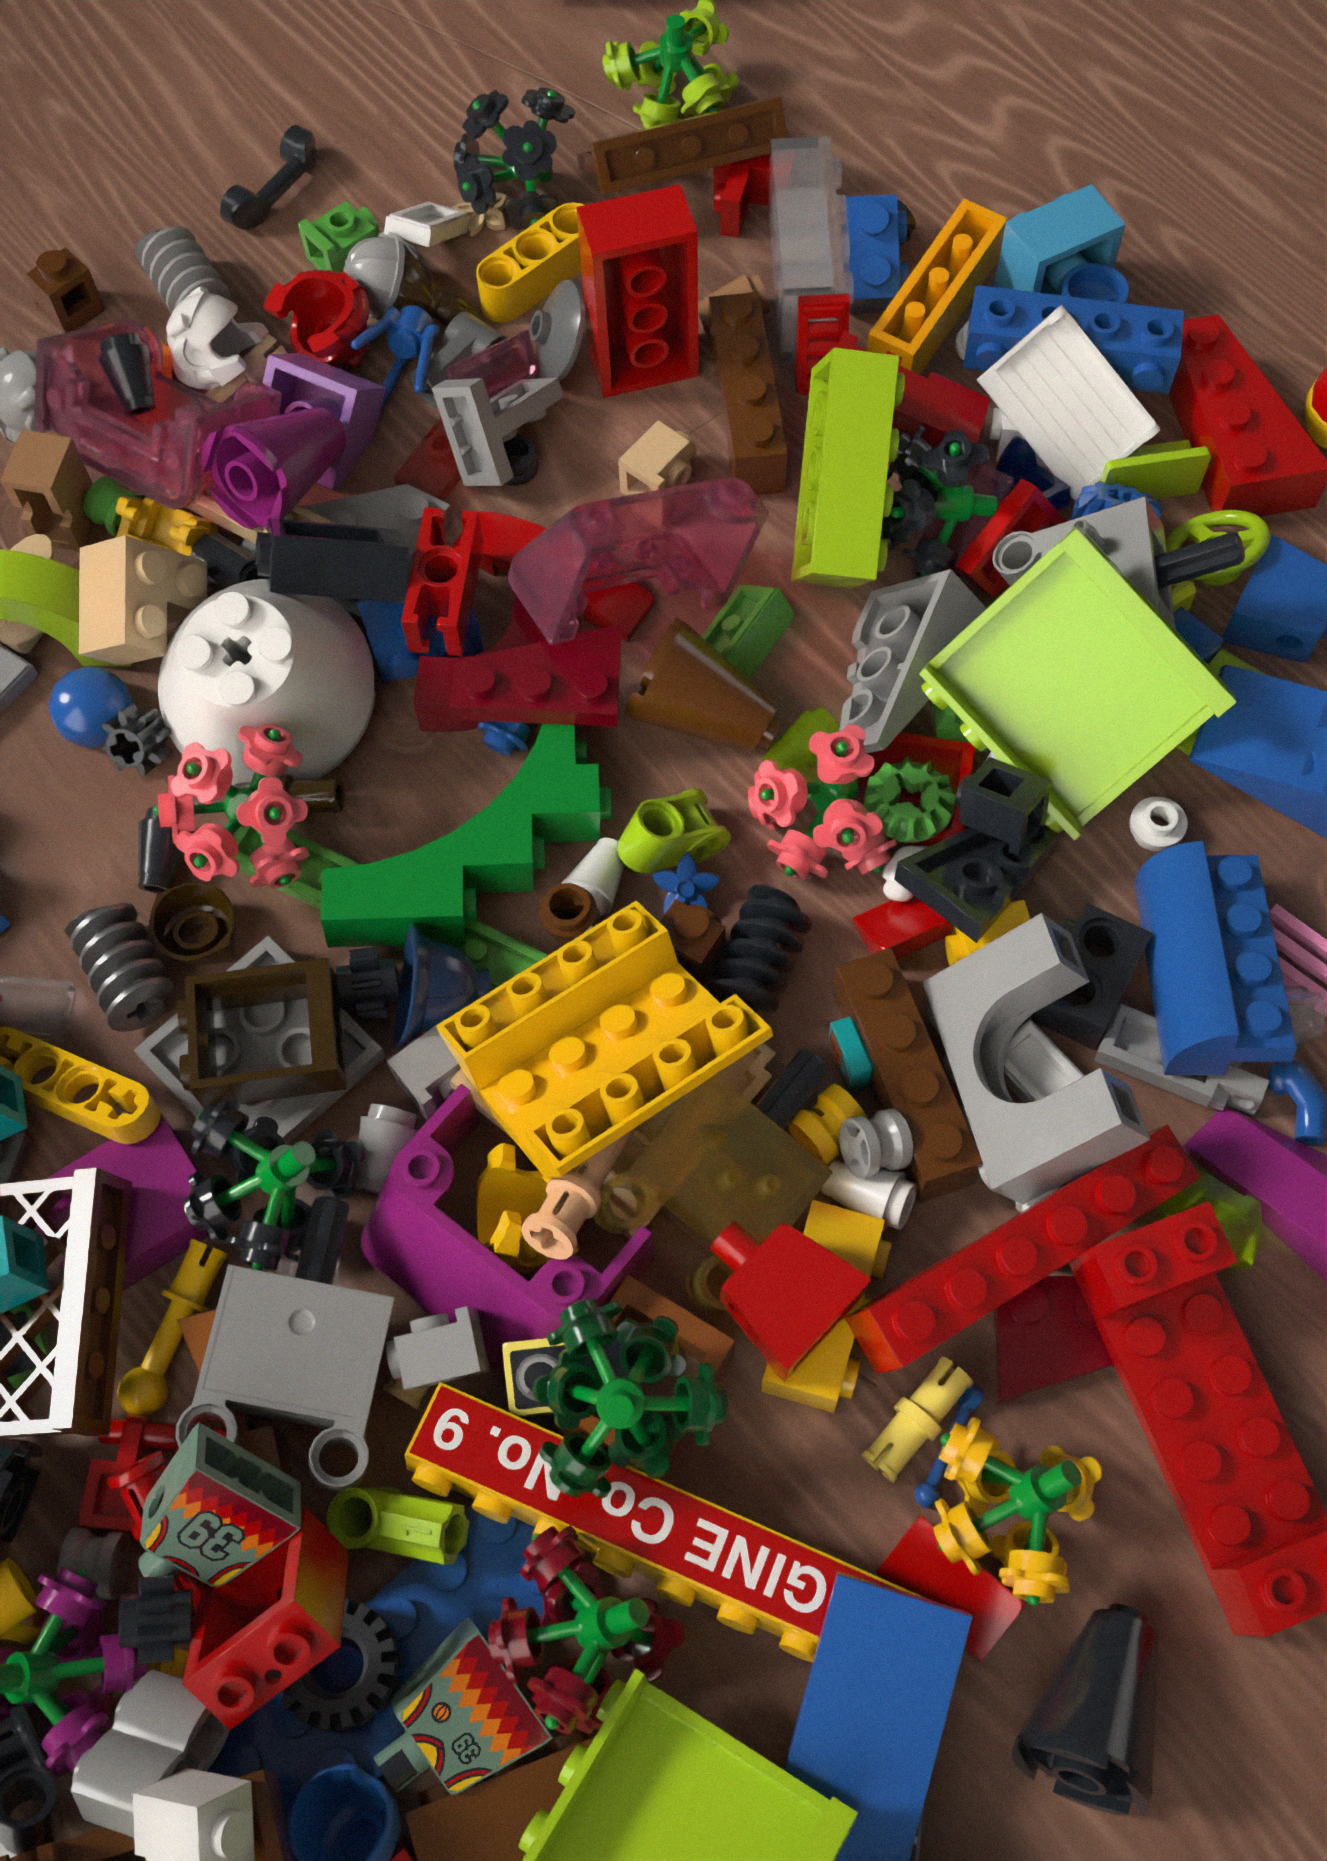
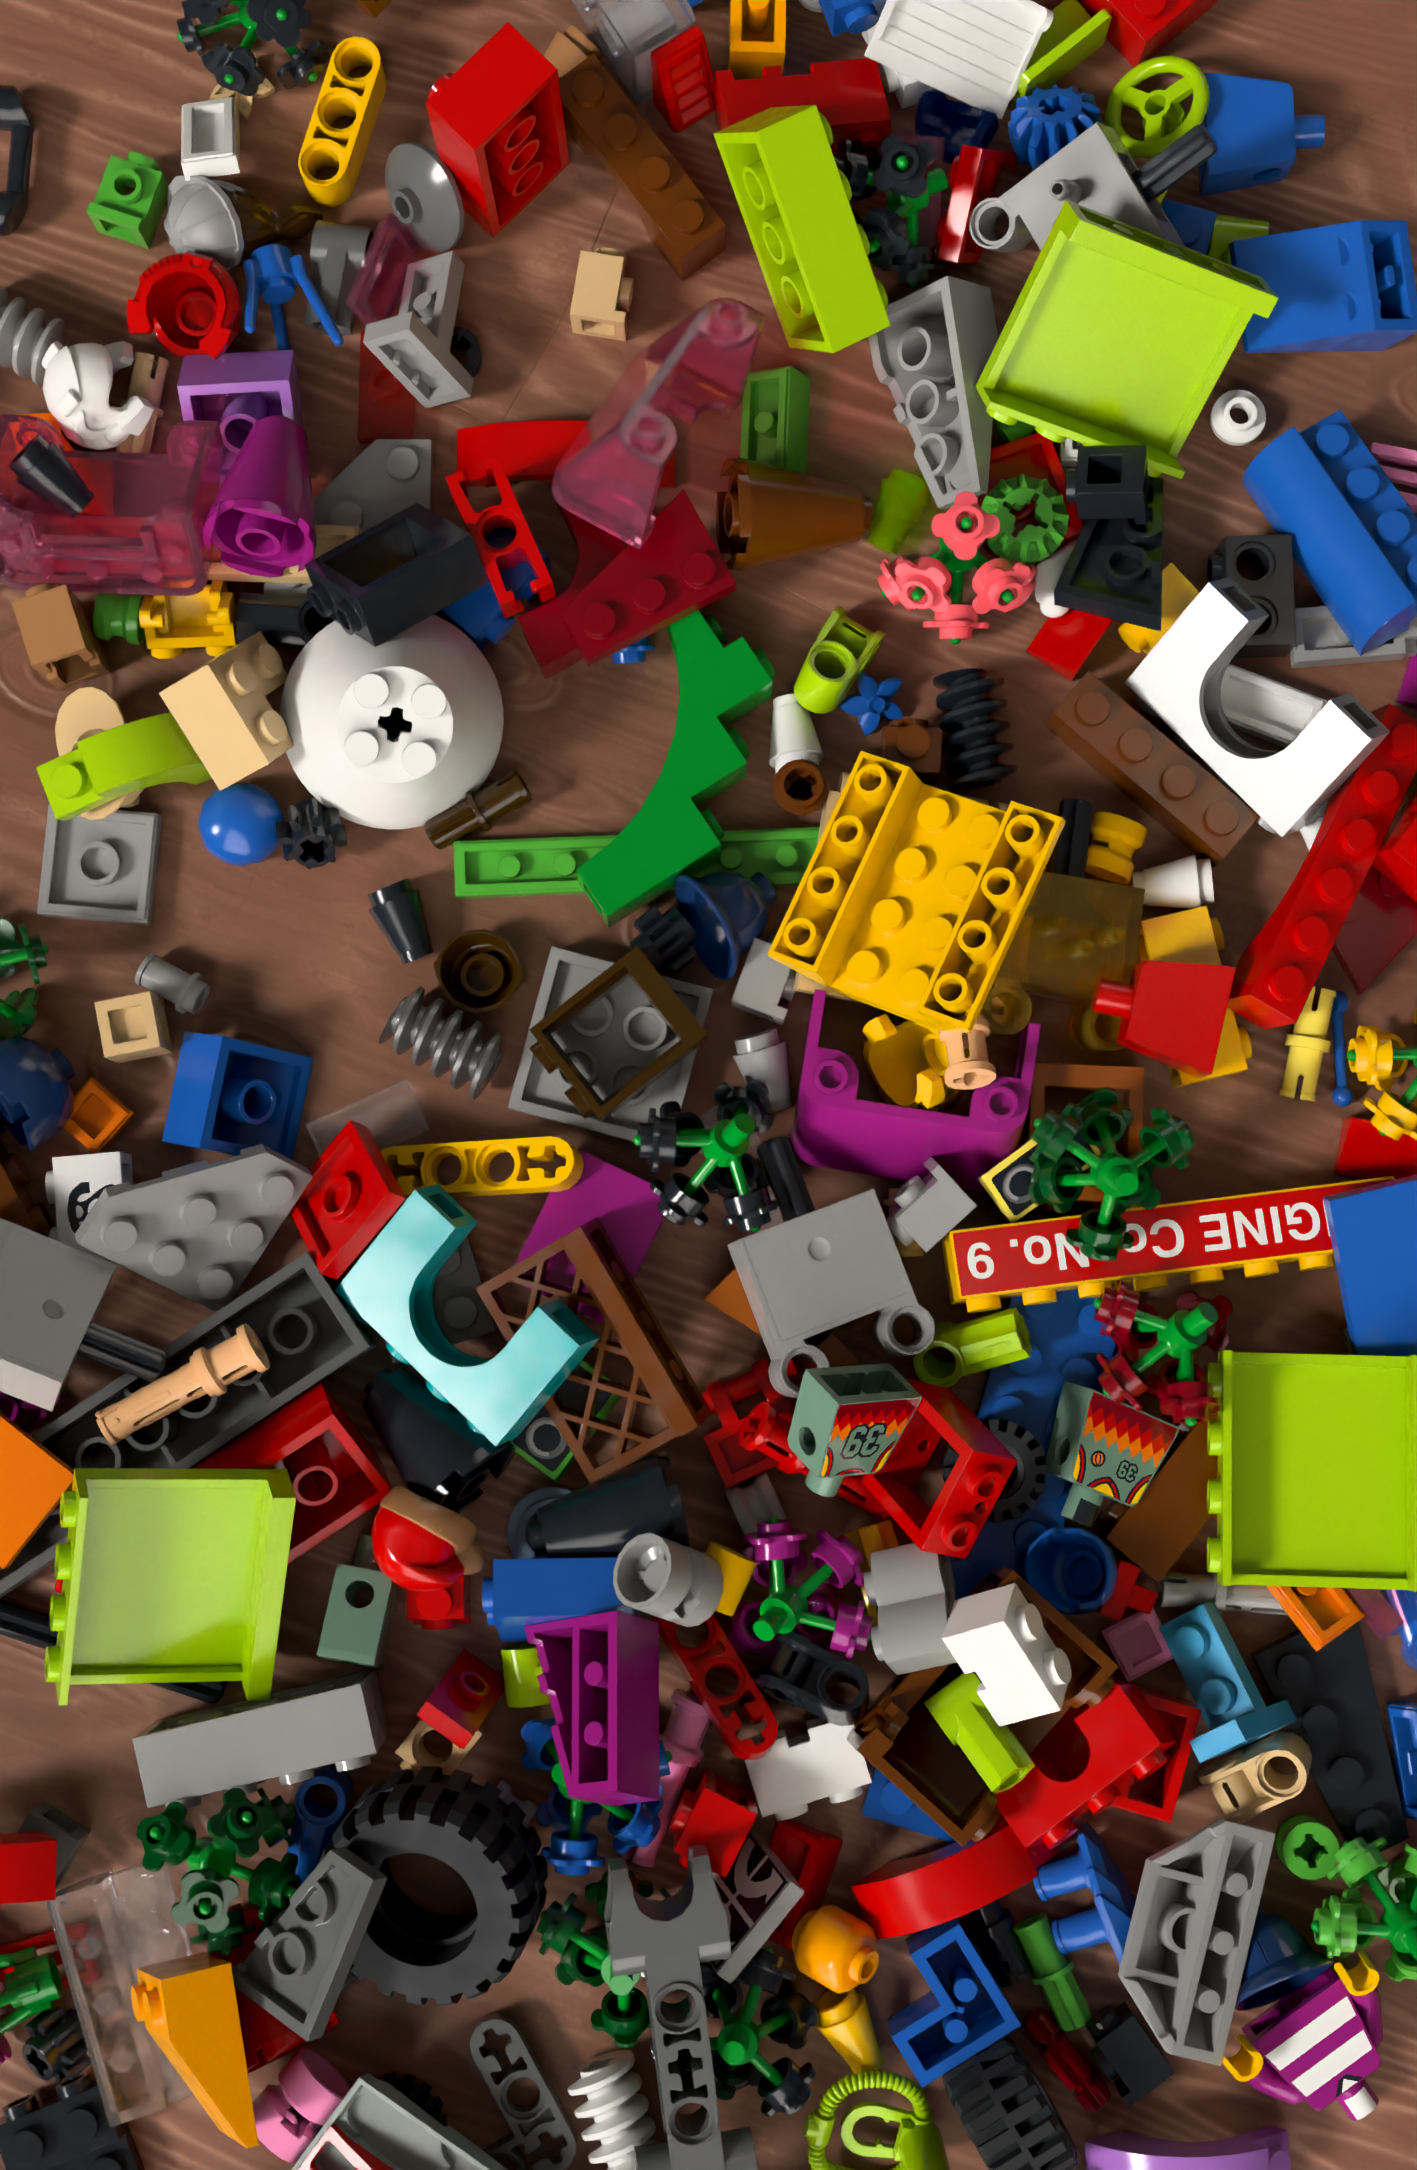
camera: 30 degrees left, 20 degrees up
(145, 1387) = (687, 1273): yellow pin -> none
(156, 1619) = (854, 1518): black gear -> none
(259, 805) = (460, 848): coral plant -> none
(850, 1055) = (1097, 777): teal tile -> none
(876, 1143) = (1166, 846): light grey wheel -> none

